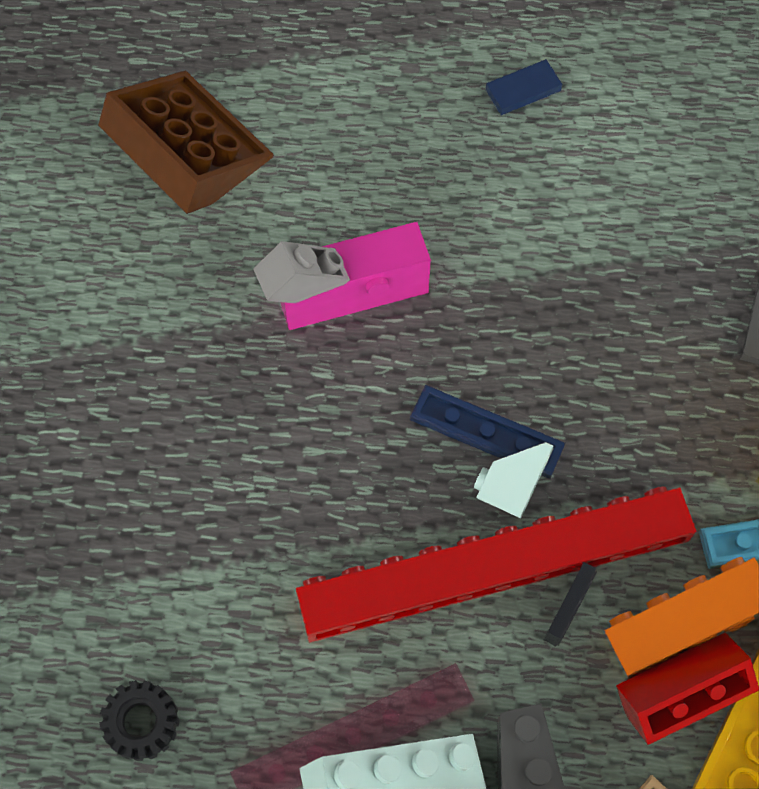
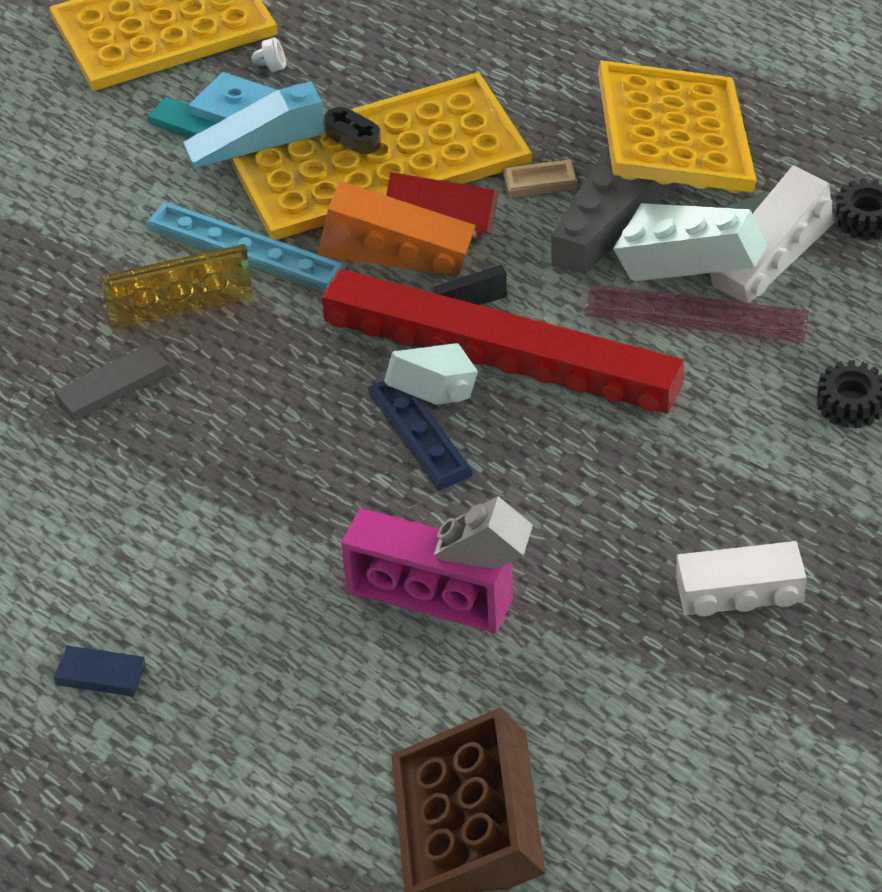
camera: 140 degrees left, 20 degrees down
(113, 444) = (740, 578): none -> white brick

